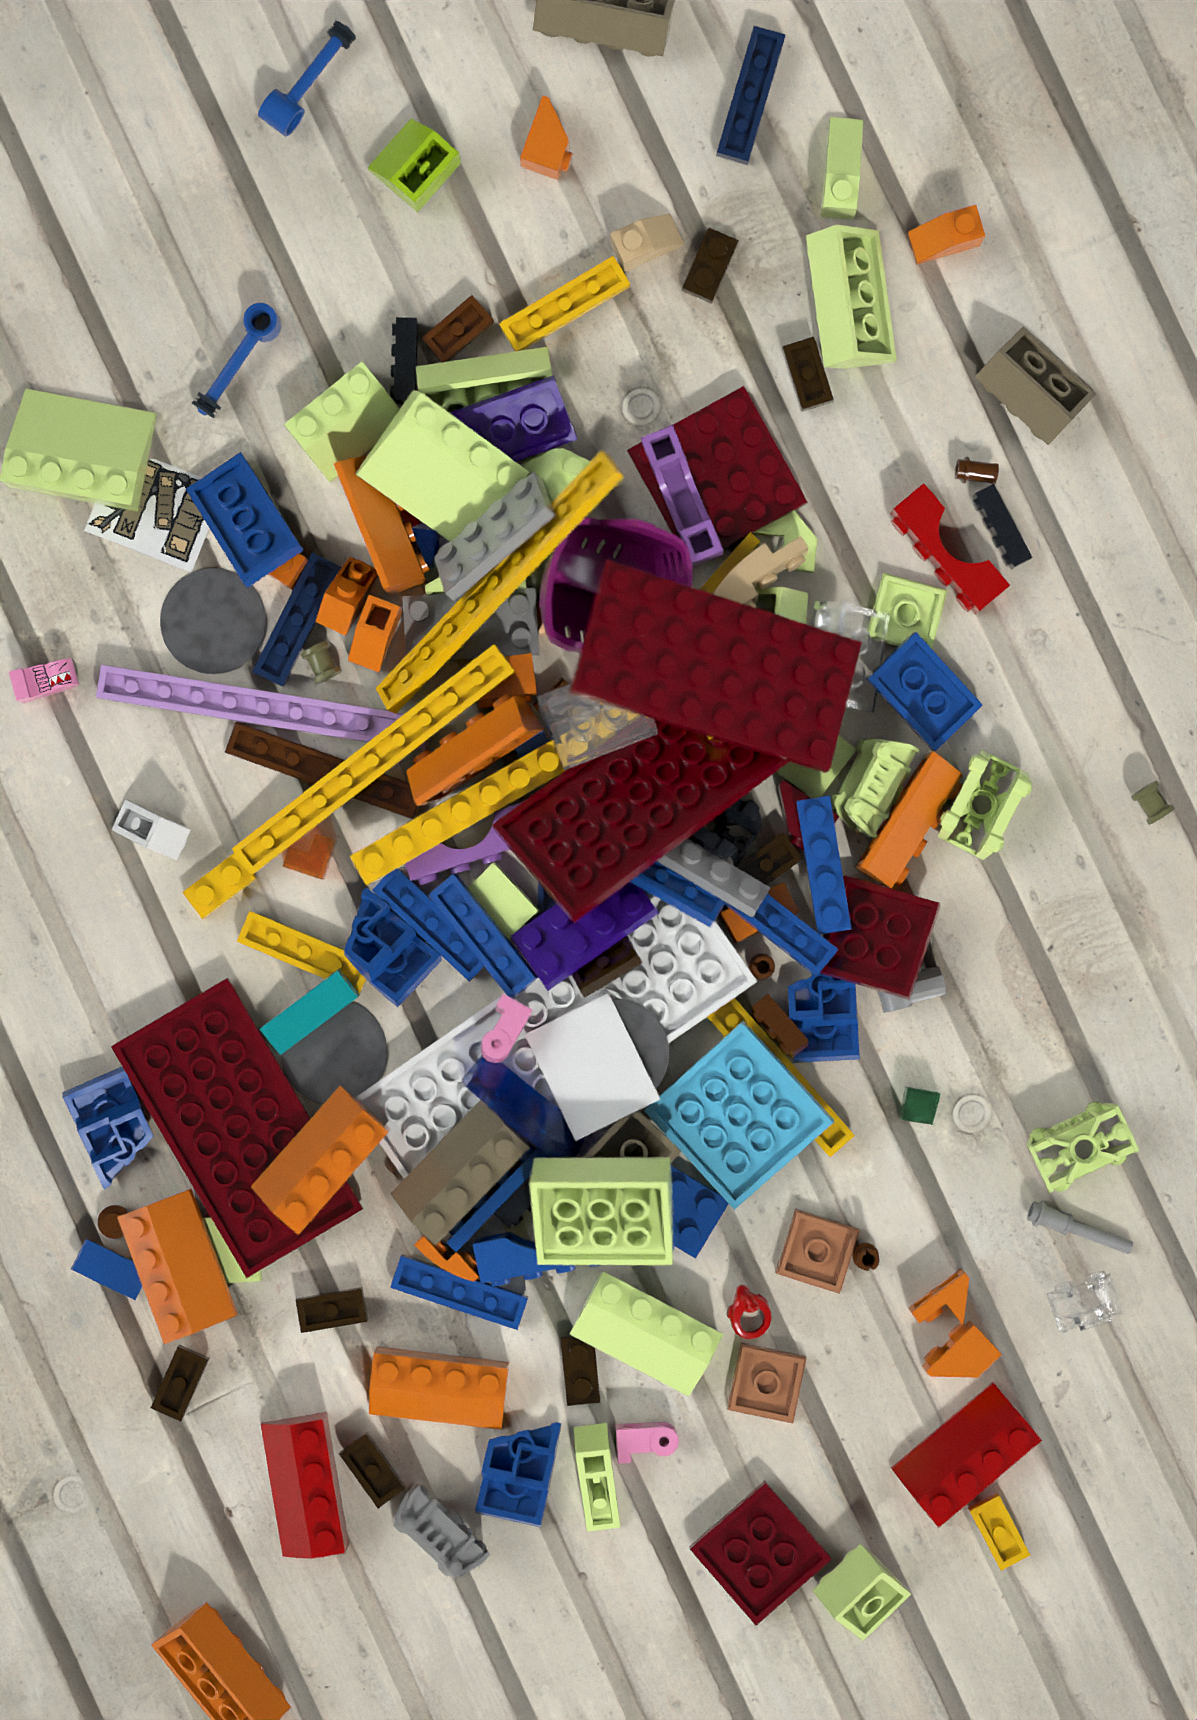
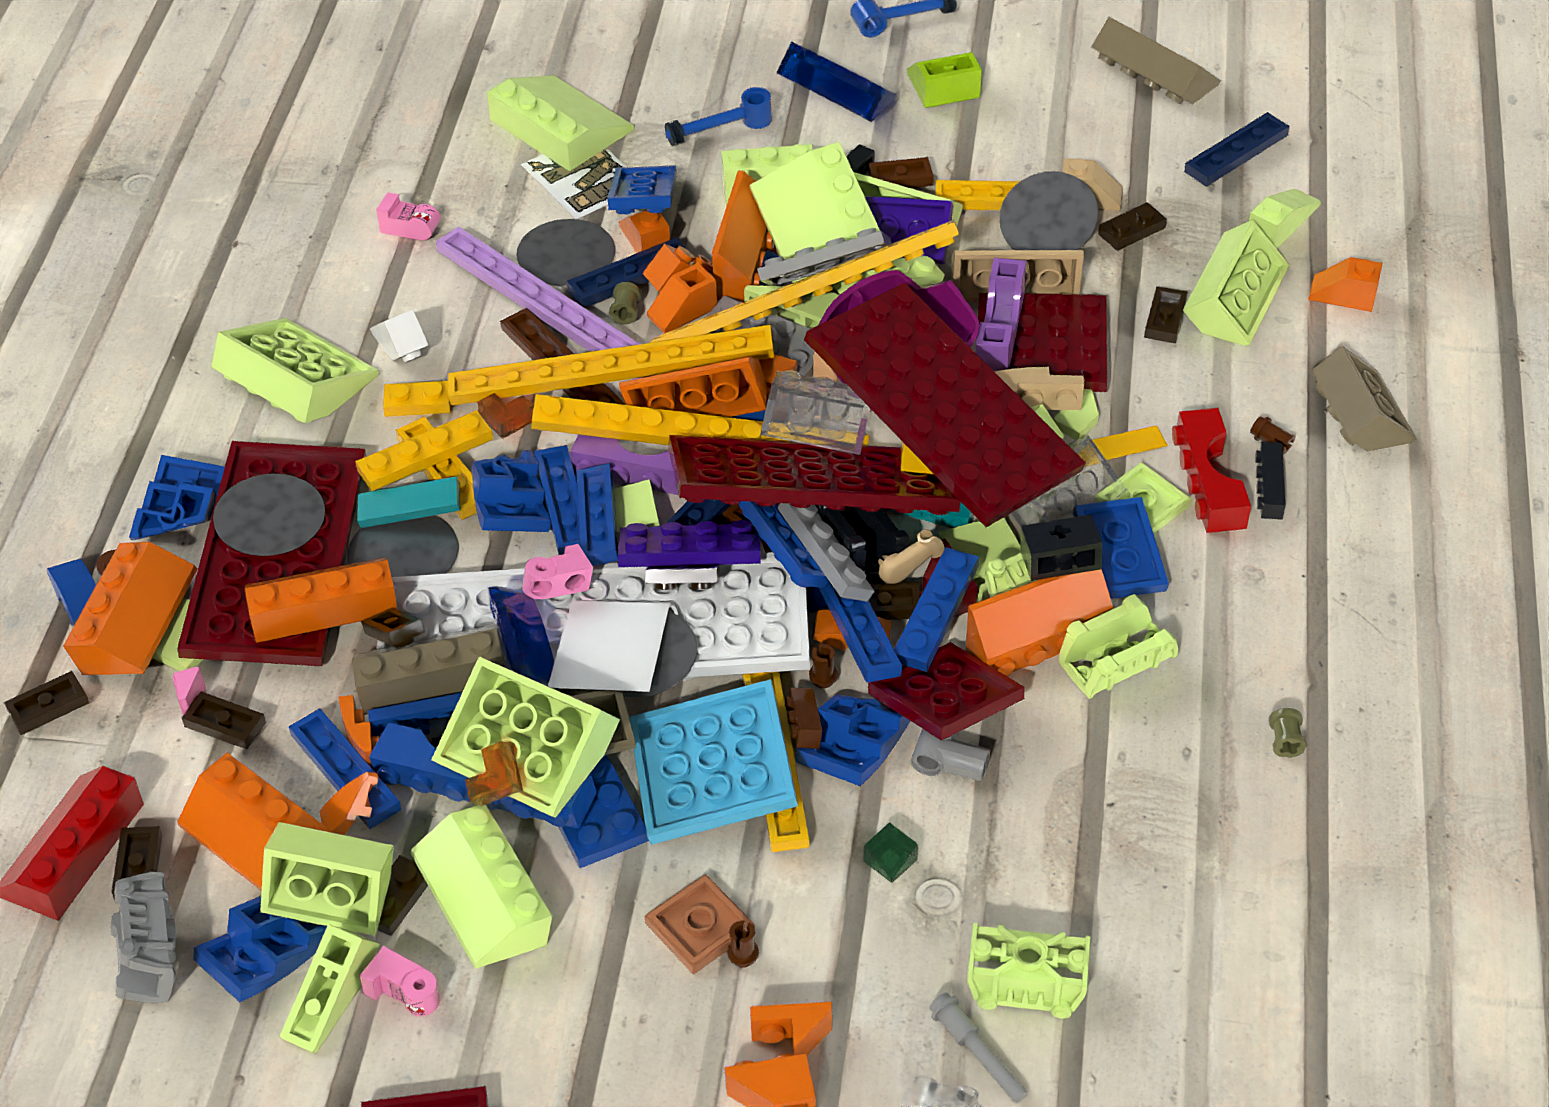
camera: 25 degrees right, 40 degrees down
(87, 923) = (291, 367): none -> yellowish green slope
(207, 1101) = (269, 514): none -> flat silver sticker
(282, 952) = (424, 450): none -> yellow plate
(284, 1306) = (188, 685): none -> bright pink slope
(320, 231) = (834, 82): none -> clear blue windscreen
(410, 1161) = (393, 627): none -> dark brown plate
(495, 1332) = (349, 801): none -> orange slope
(538, 1410) = (325, 878): none -> yellowish green slope
(547, 143) = (1051, 107): orange slope -> none
(611, 1260) = (500, 778): none -> clear orange piece
(633, 310) = (1048, 213): none -> flat silver sticker
(651, 408) = (1045, 270): none -> tan slope
(747, 1301) = (595, 916): red piece -> none
(762, 836) = (901, 565): none -> tan piece
(766, 1382) = (560, 1008): nougat tile -> none
(848, 558) = (1130, 442): none -> yellow sticker
(923, 762) = (1061, 547): none -> black brick

